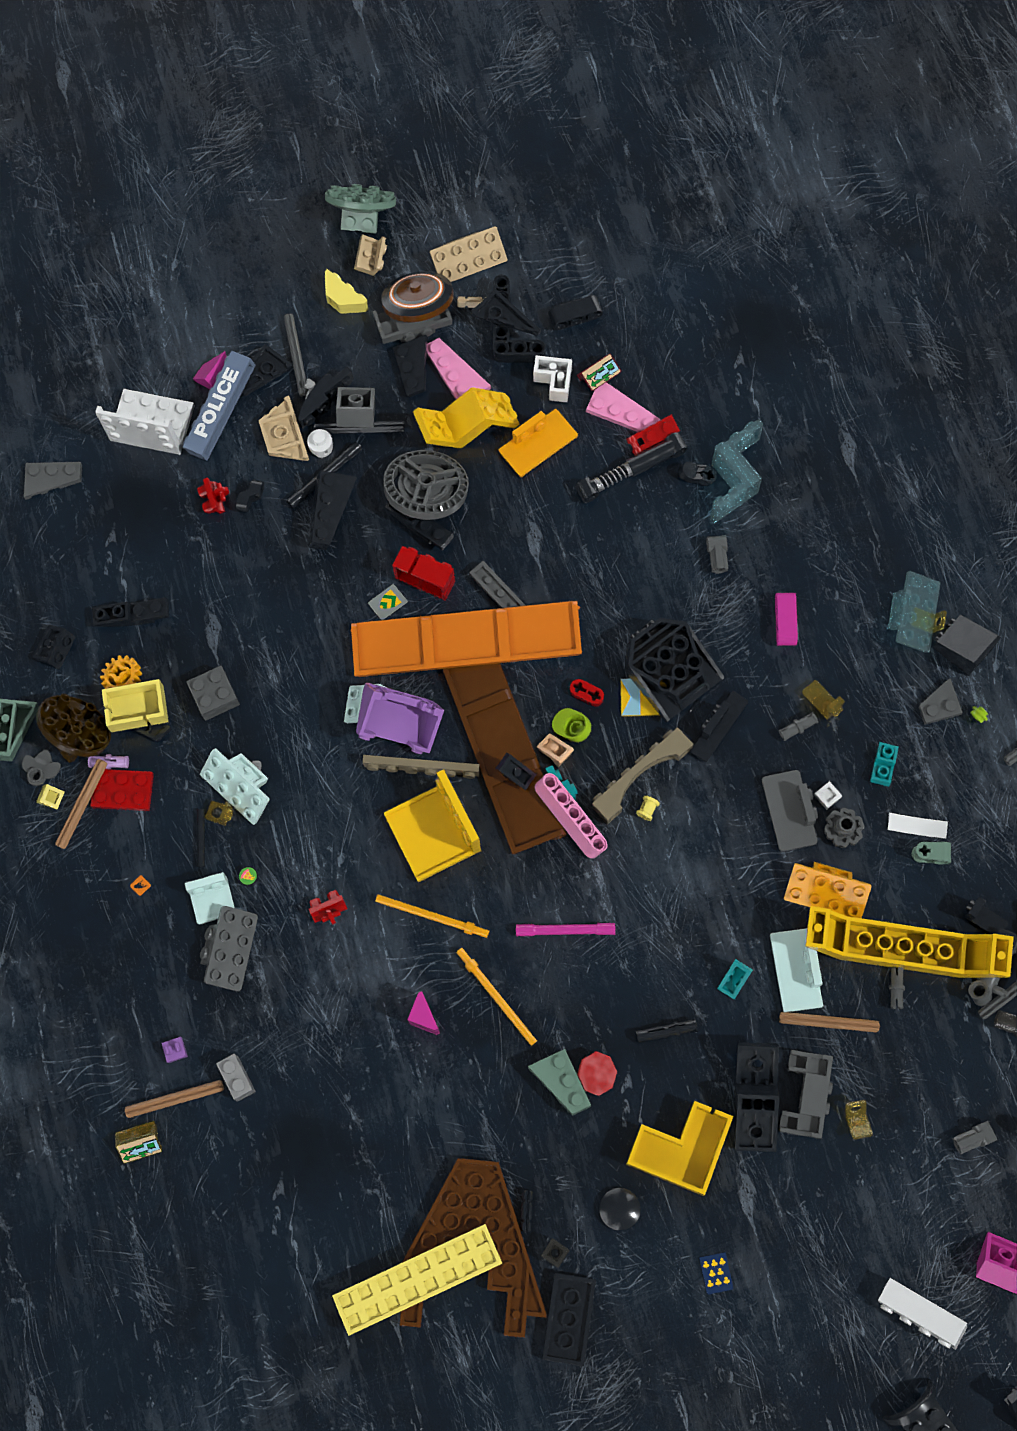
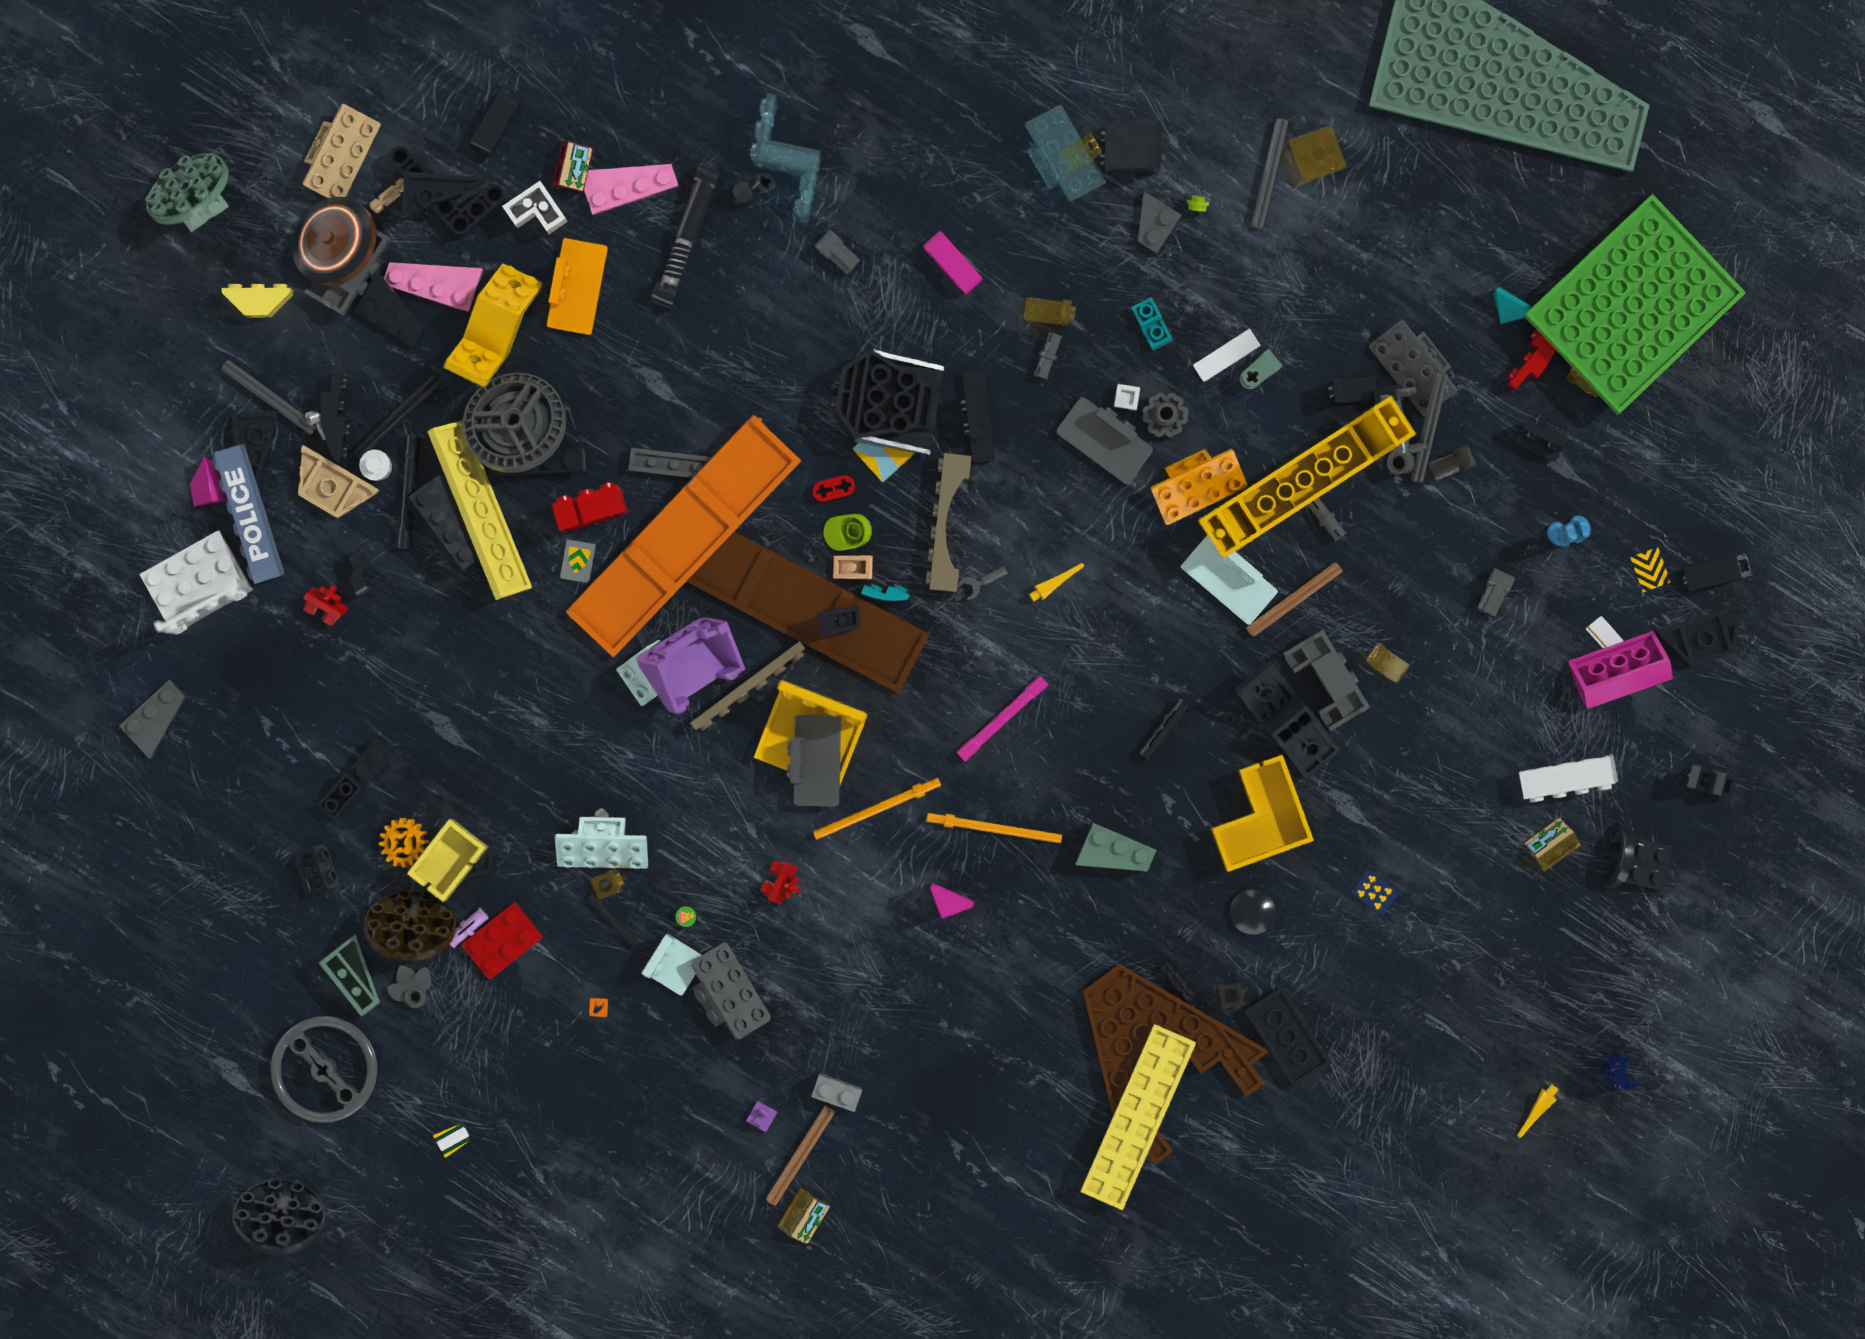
camera: 45 degrees left, 15 degrees up
(50, 796) = (444, 1003): light yellow slope -> none
(81, 803) = (480, 985): medium nougat axle -> none
(213, 693) = (502, 785): dark grey brick -> none
(355, 407) = (379, 403): dark grey brick -> none
(355, 520) = (480, 511): none -> light yellow plate
(370, 255) = (246, 234): tan bracket -> none
(420, 848) = (815, 760): none -> dark grey bracket
(566, 807) = (910, 620): bright pink beam -> none
(597, 1073) = (1137, 818): red piece -> none
(631, 831) = (984, 580): none -> dark grey piece
(647, 808) = (980, 548): light yellow bush -> none
(653, 434) = (677, 186): red plate -> none
(669, 871) = (1044, 589): none -> yellow piece
(734, 979) = (1184, 634): teal slope -> none
(871, 1352) = (1552, 844): none -> panel

